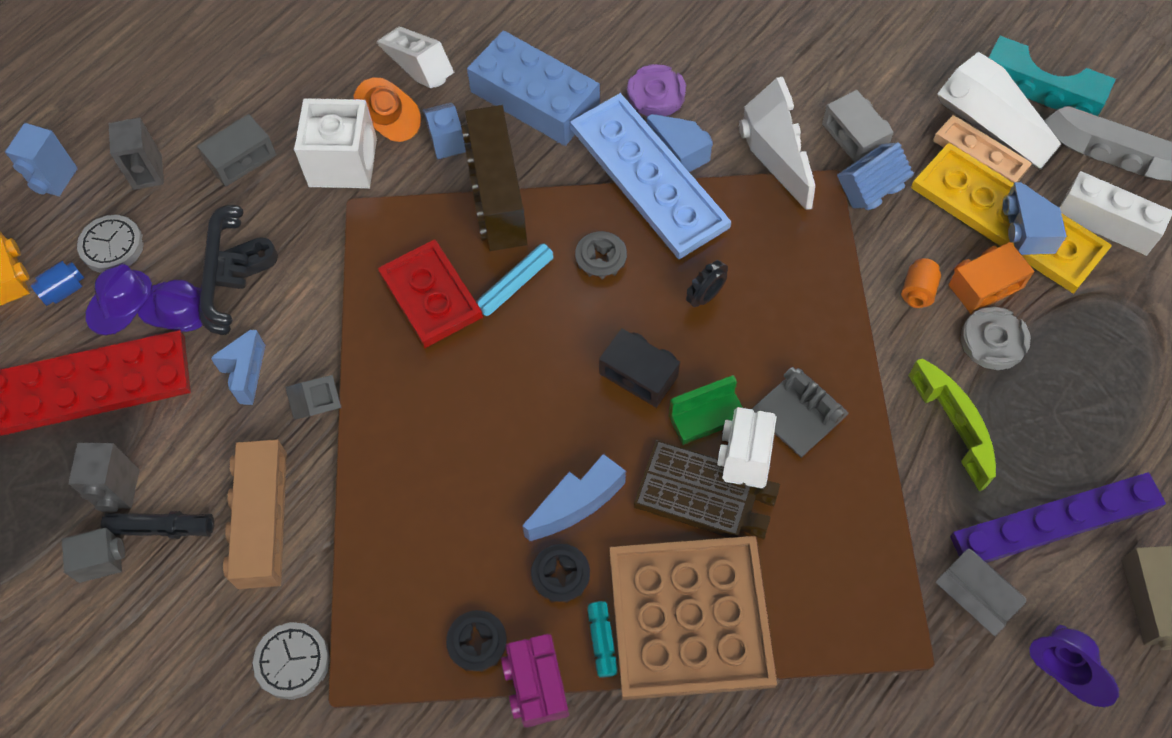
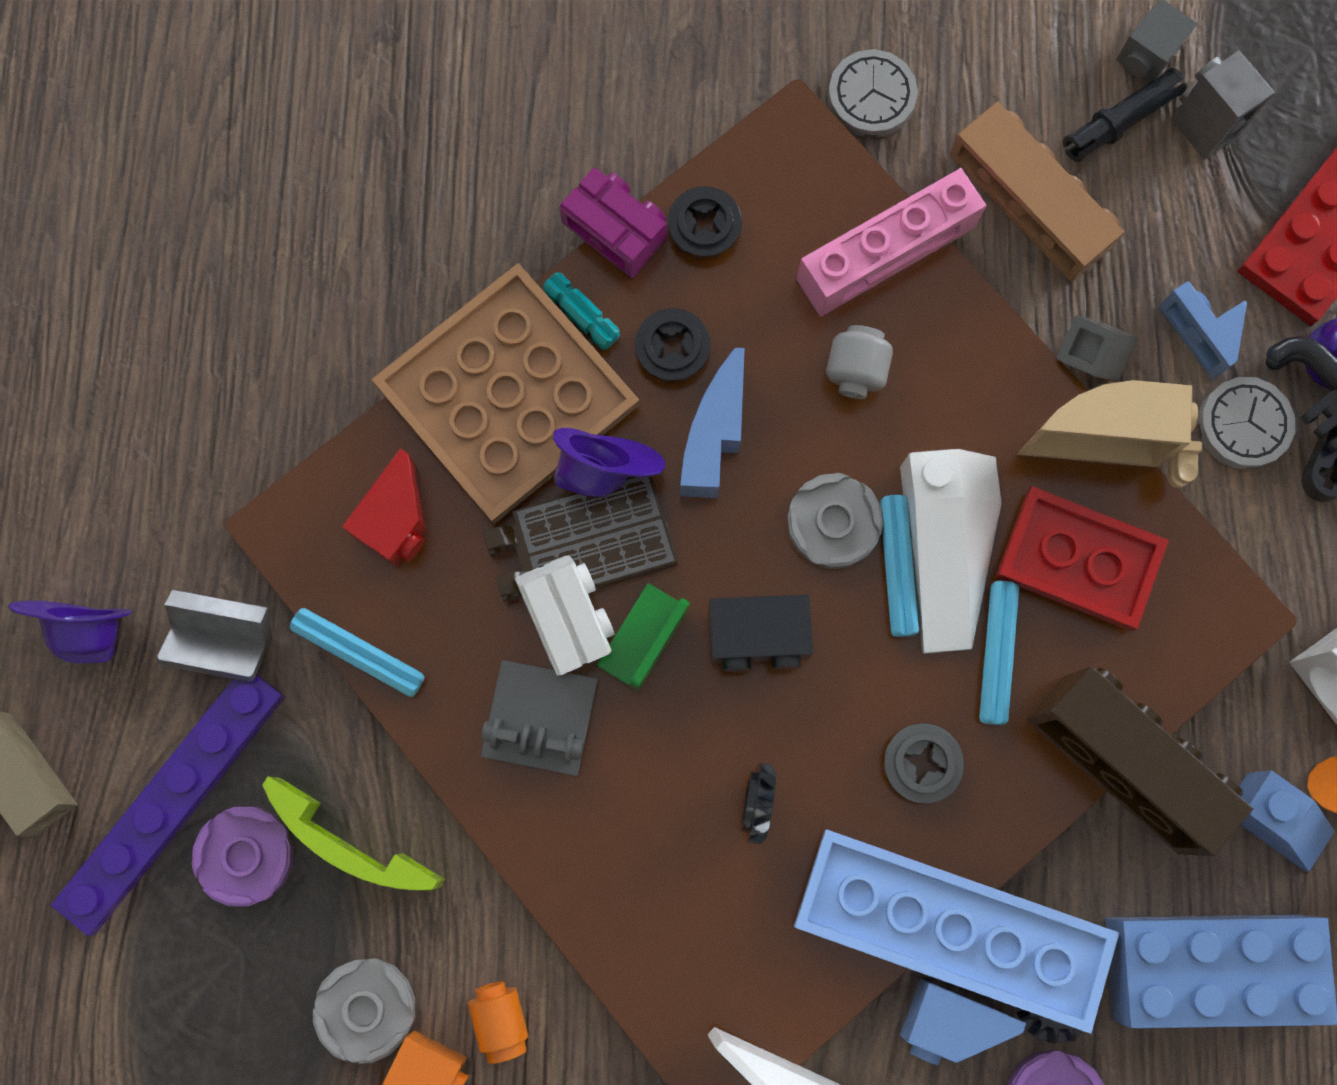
camera: 140 degrees right, 15 degrees up
(273, 308) = (1246, 423): none -> light grey tile
(351, 334) = (1125, 425): none -> tan piece
(375, 535) = (890, 242): none -> bright pink brick
(457, 476) = (859, 361): none -> light grey head
(487, 355) = (952, 532): none -> white wedge
(530, 356) = (899, 566): none -> medium azure axle
(546, 405) = (834, 521): none -> light grey tile
(659, 516) = (601, 463): none -> dark purple piece
(819, 585) = (391, 513): none -> red slope
(891, 521) = (357, 652): none -> medium azure axle
(1027, 459) = (243, 856): none -> medium lavender tile

